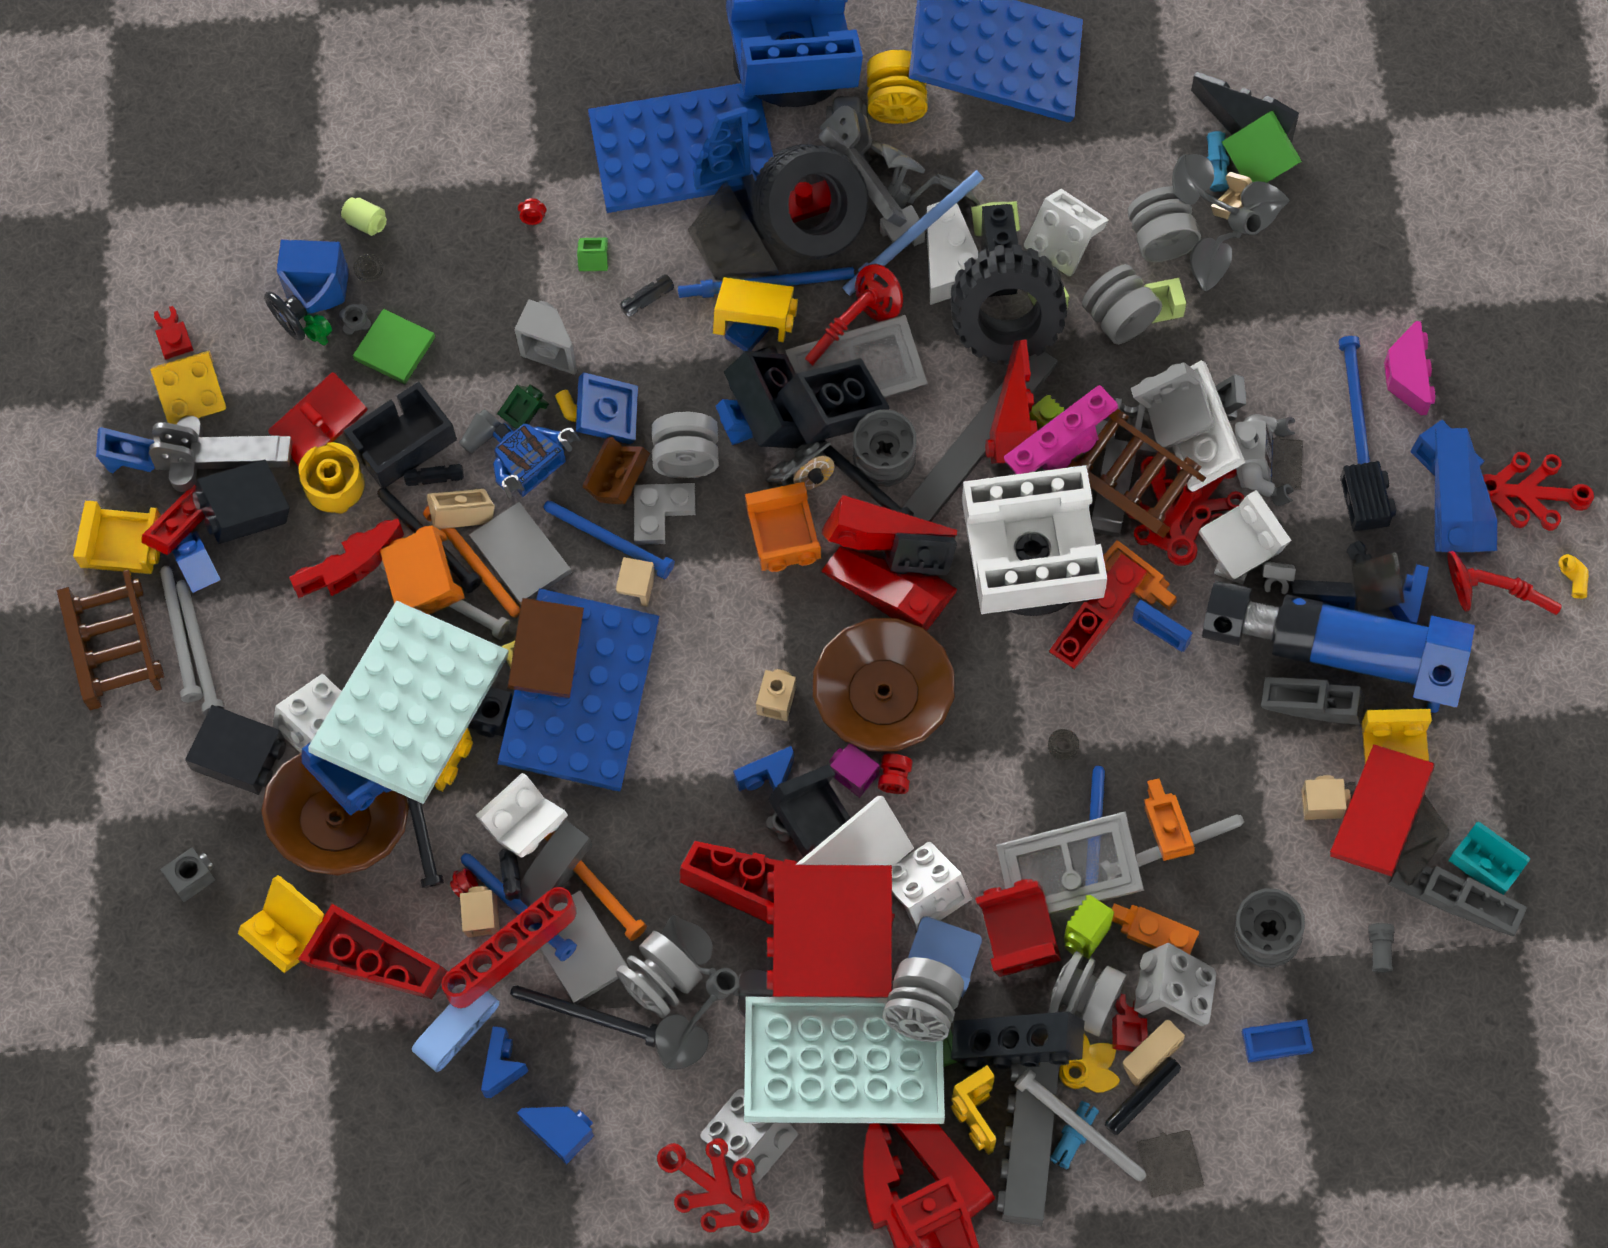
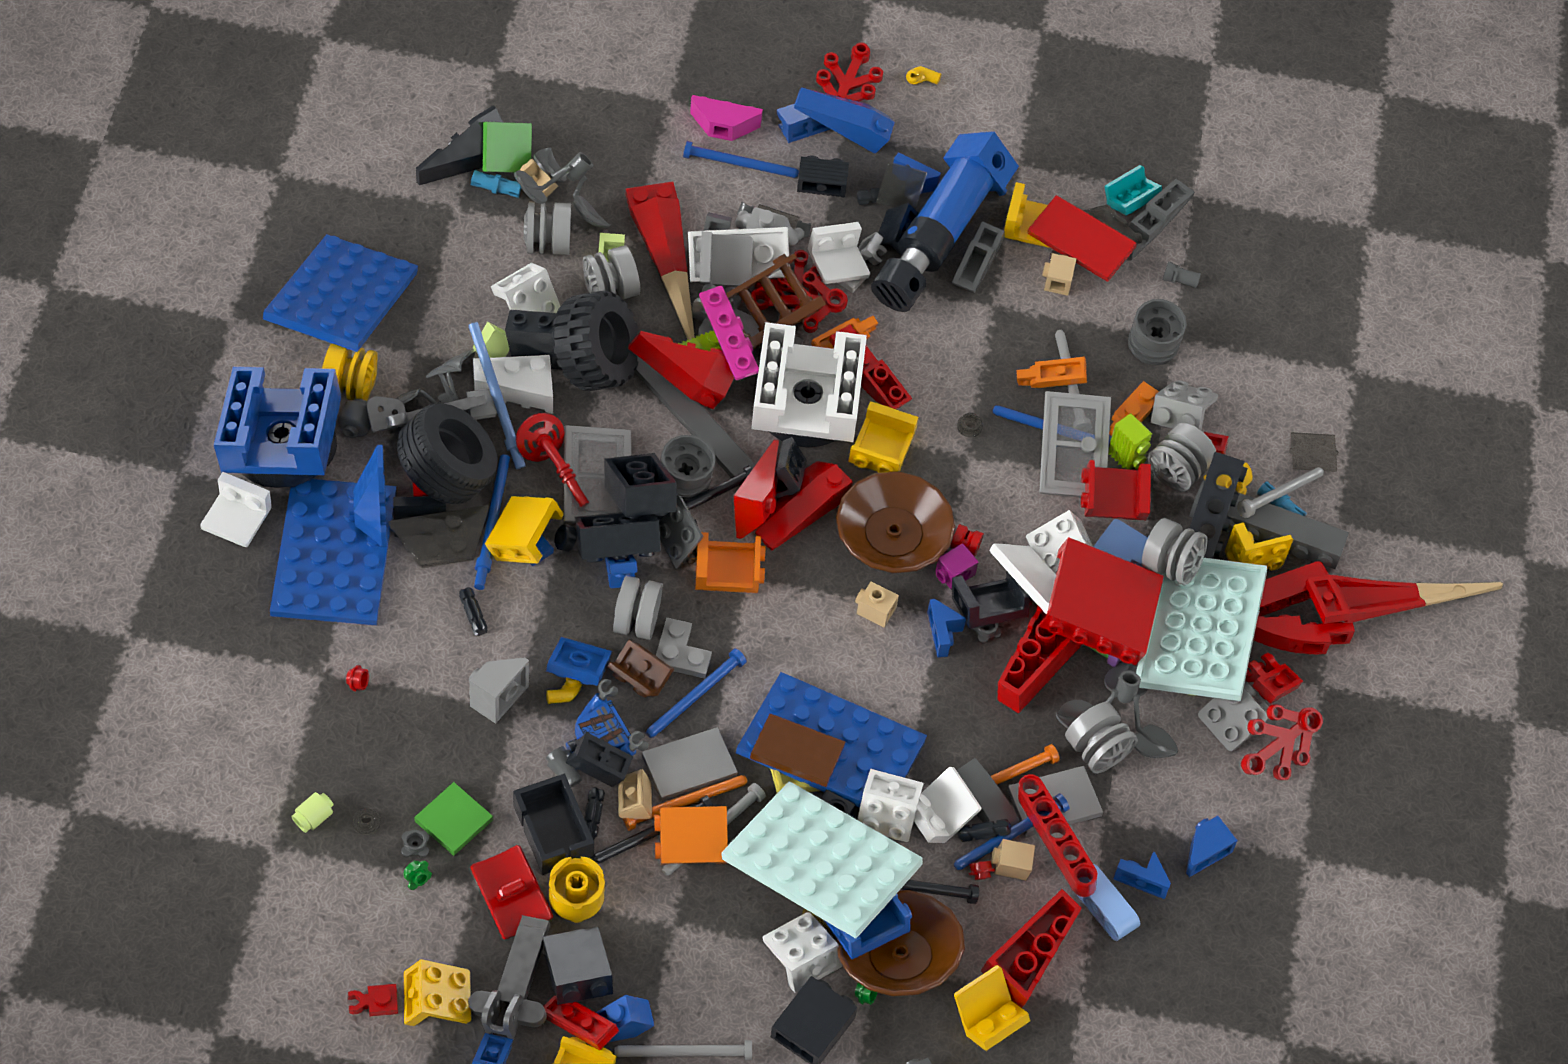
camera: 85 degrees left, 10 degrees down
(197, 648) = (704, 1037): light grey bar -> none
(312, 279) = (375, 866): blue piece -> none
(344, 570) = (659, 889): red slope -> none
(484, 457) = (600, 760): none -> black hinge
(509, 758) = (890, 804): none -> white bracket
(522, 405) = (552, 728): dark green bracket -> none
(586, 1014) = (1142, 764): black bar -> none
(592, 254) = (415, 643): bright green slope -> none
(636, 579) = (745, 676): tan panel -> none
(695, 43) = (237, 510): none -> white bracket
(799, 1169) = (1273, 679): none -> red plate
(1004, 653) = (883, 439): none -> yellow panel
(1142, 1096) = (1260, 452): black axle -> none
(1153, 1052) = (1235, 431): tan slope -> none
(1162, 626) = (892, 333): blue tile -> none
(1231, 339) = (658, 219): none -> red plate
(1277, 1040) = (1235, 360): blue tile -> none
(1465, 579) = (915, 131): red dish -> none

